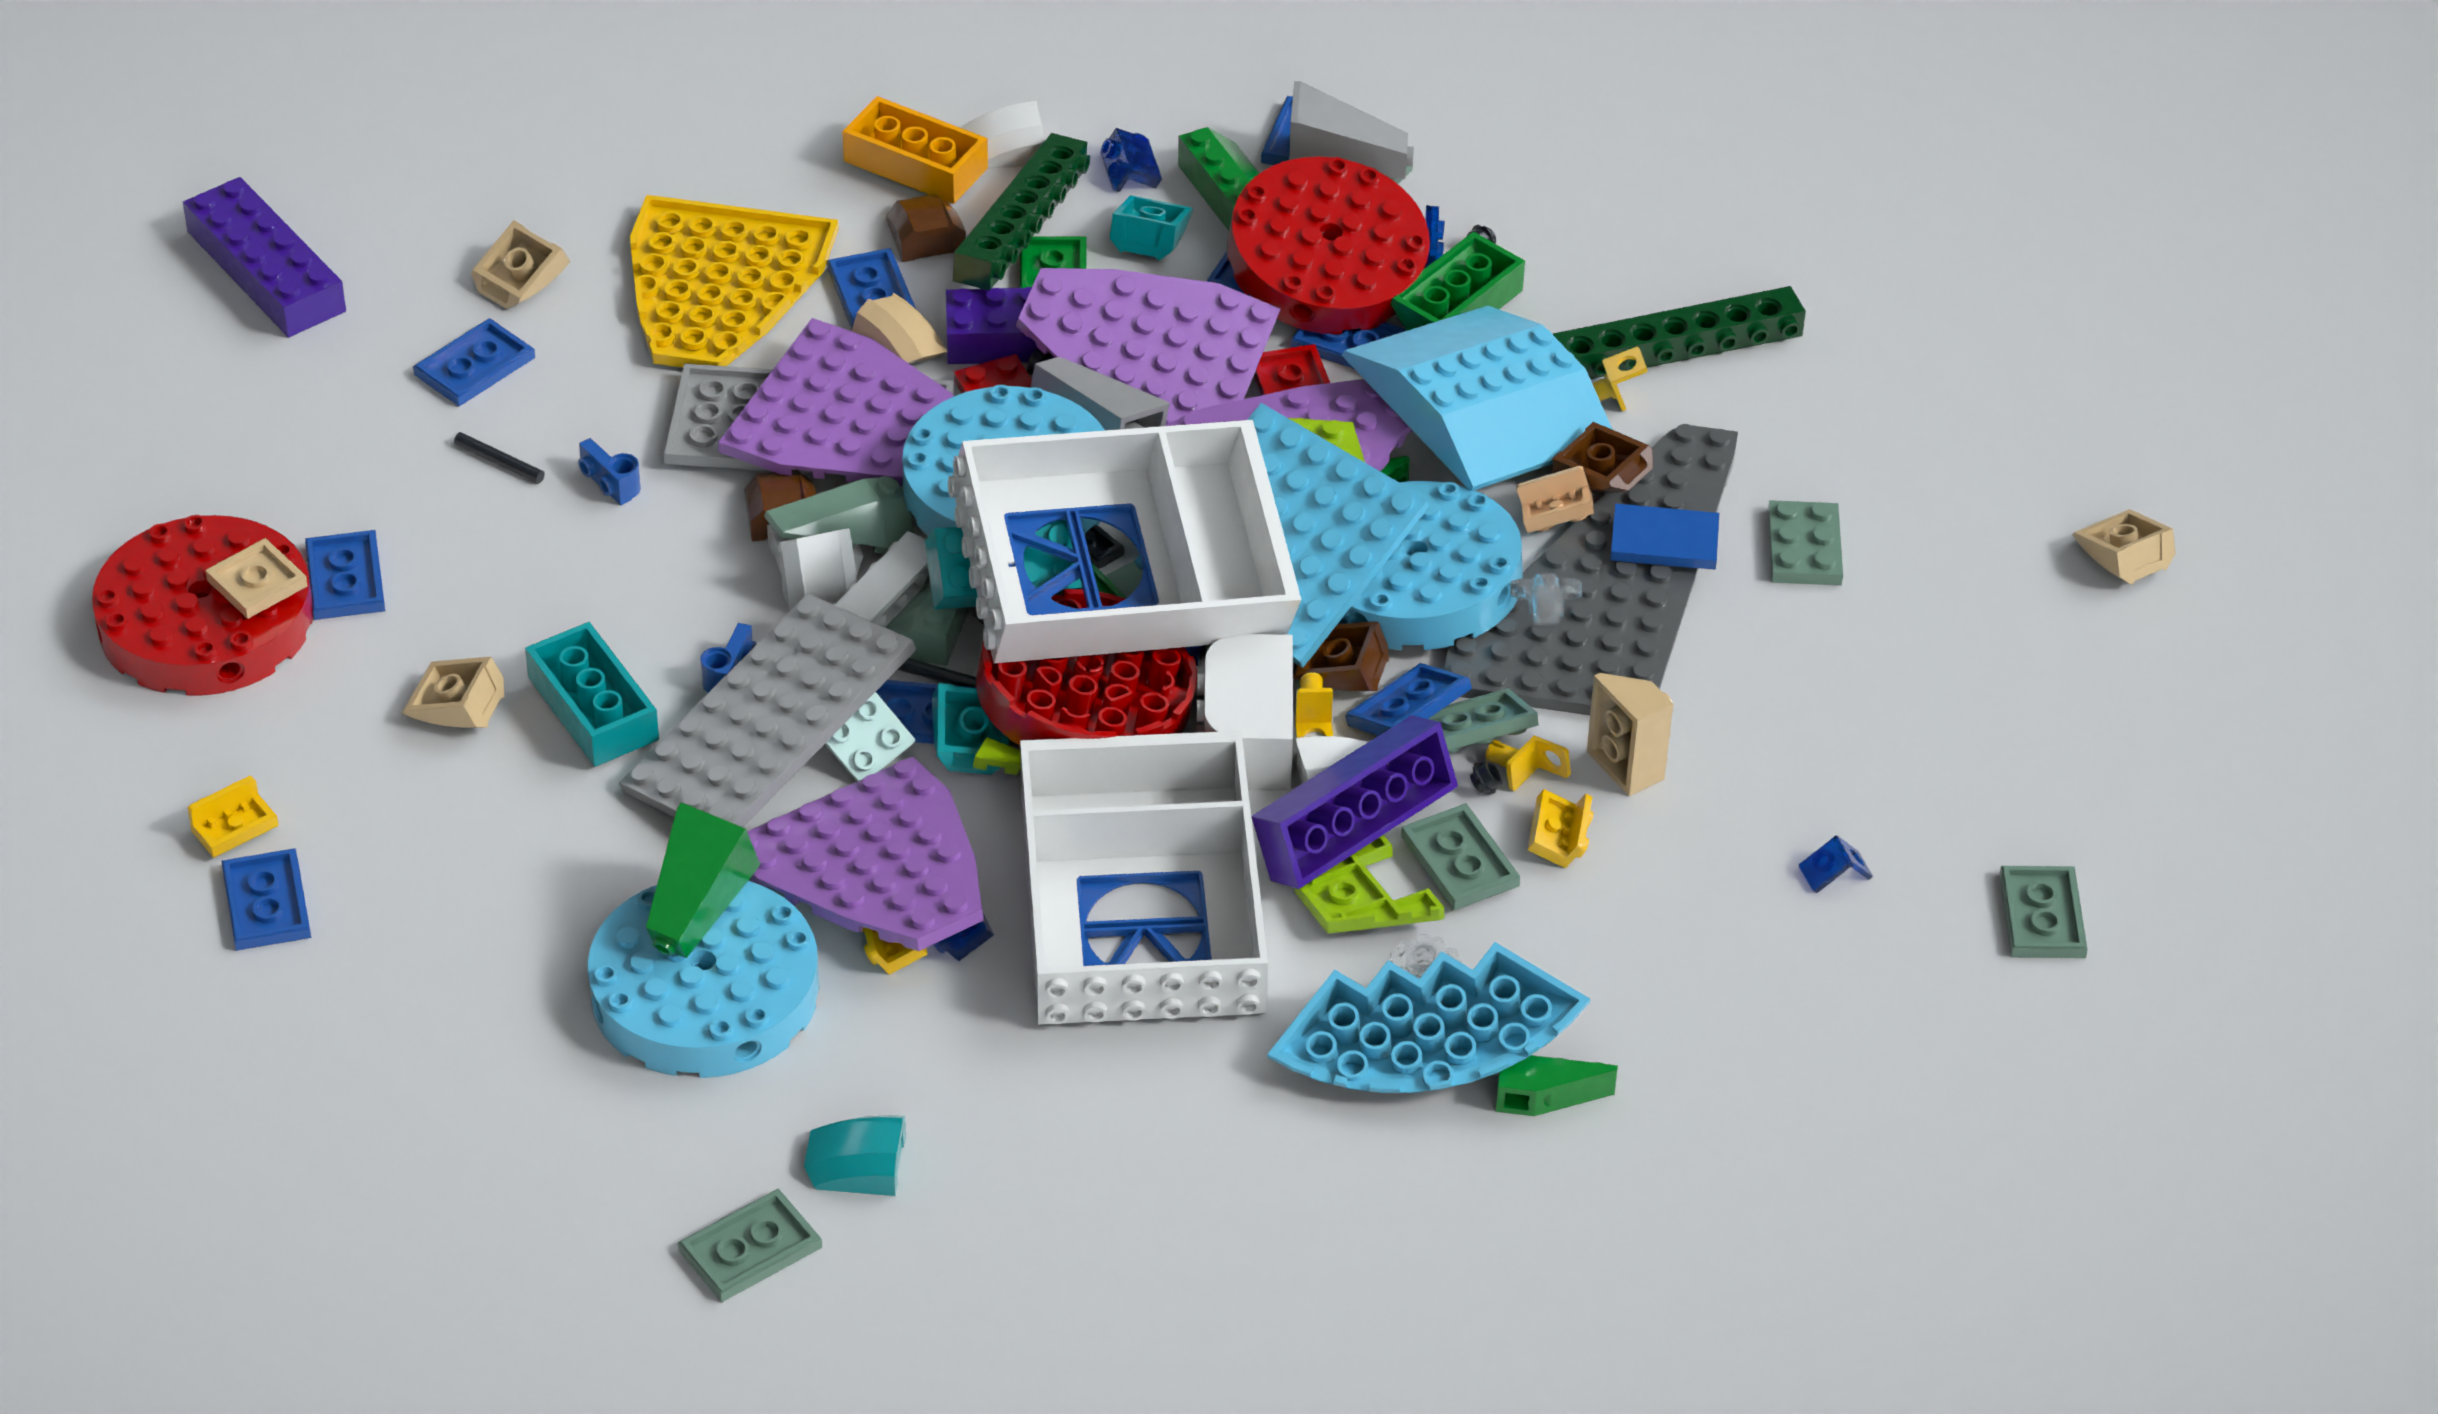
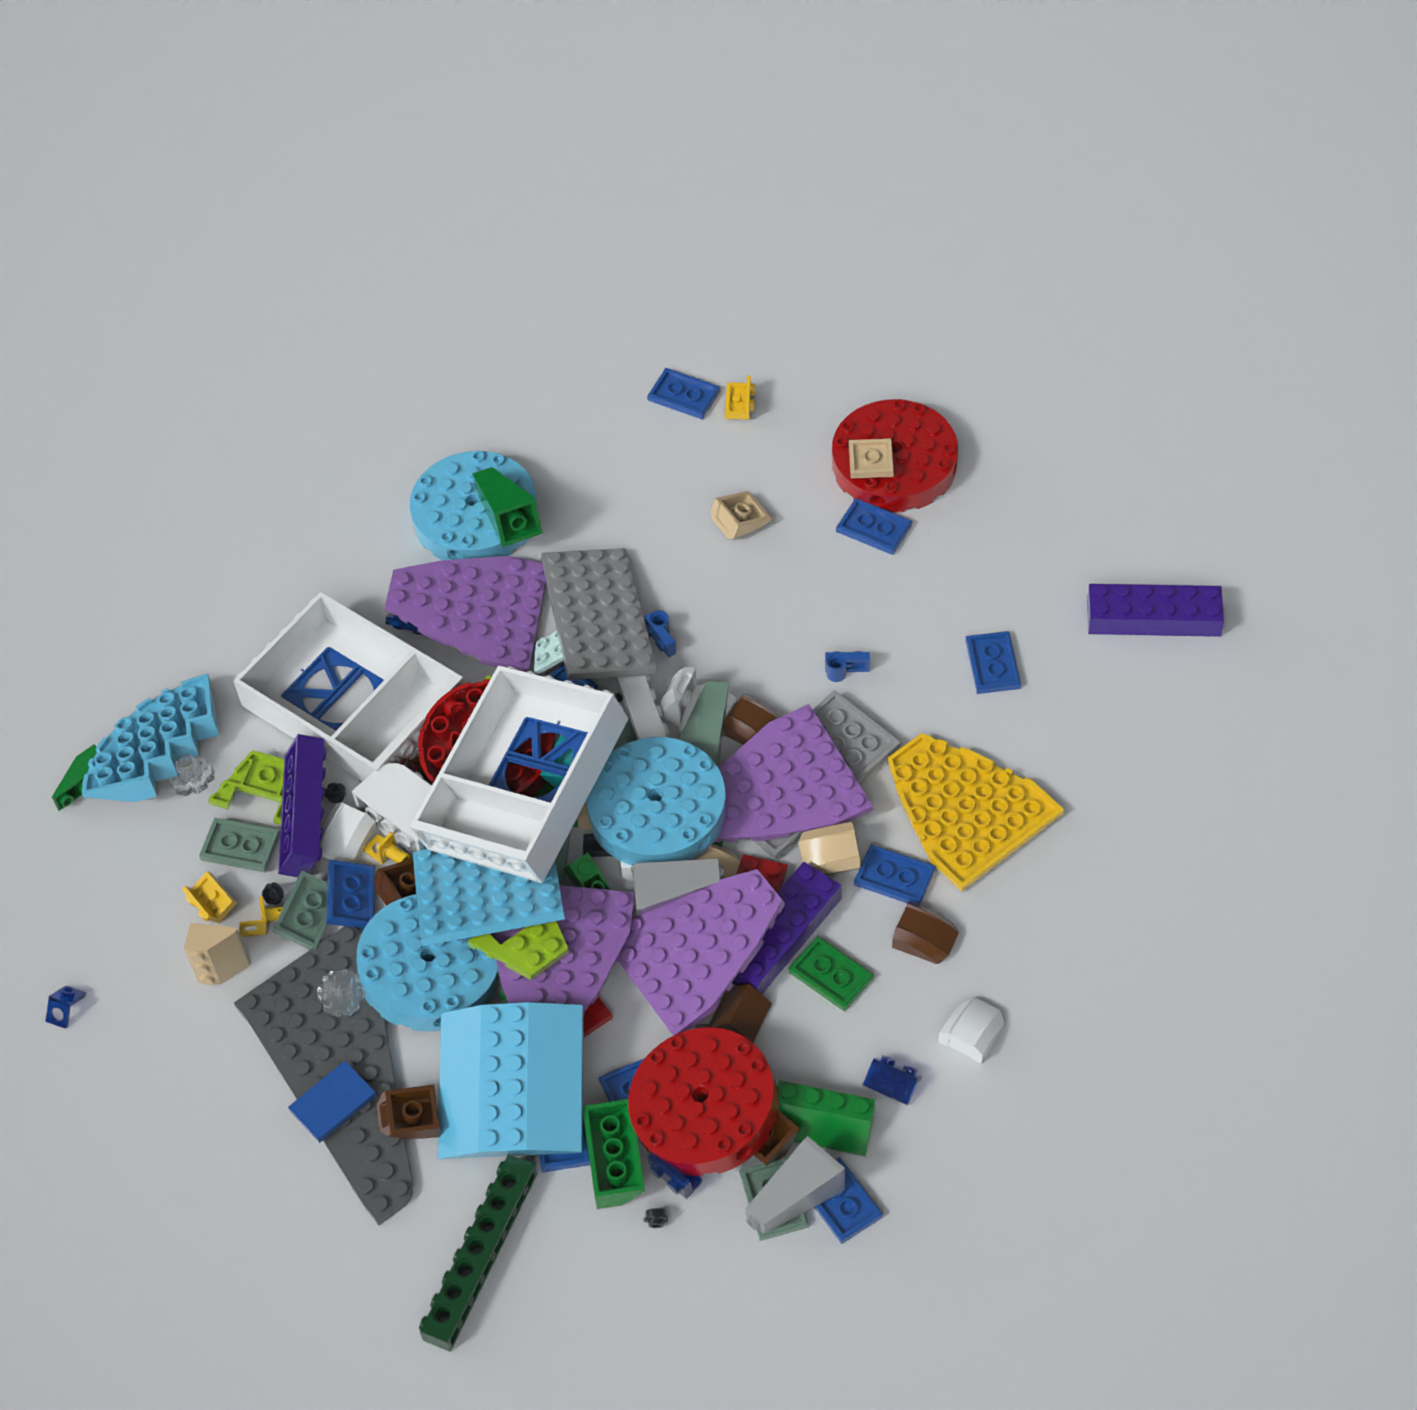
camera: 135 degrees right, 10 degrees up
(499, 457) = (905, 631): black bar -> none
(518, 266) = (1049, 718): tan slope -> none
(592, 694) = (686, 561): teal brick -> none
(750, 1245) = (322, 448): sand green tile -> none
(857, 1155) = (326, 508): teal slope -> none
(915, 149) = (989, 961): light orange brick -> none
(1020, 211) = (840, 895): dark green brick -> none
(1148, 226) = (824, 1045): teal slope -> none
(1290, 369) = (633, 1025): red plate -> none
(1555, 499) = (408, 1069): light nougat bracket -> none
(1608, 386) = (467, 1177): yellow bracket -> none
(1805, 542) = (271, 1187): sand green plate -> none
(2129, 545) = (99, 1347): tan slope -> none

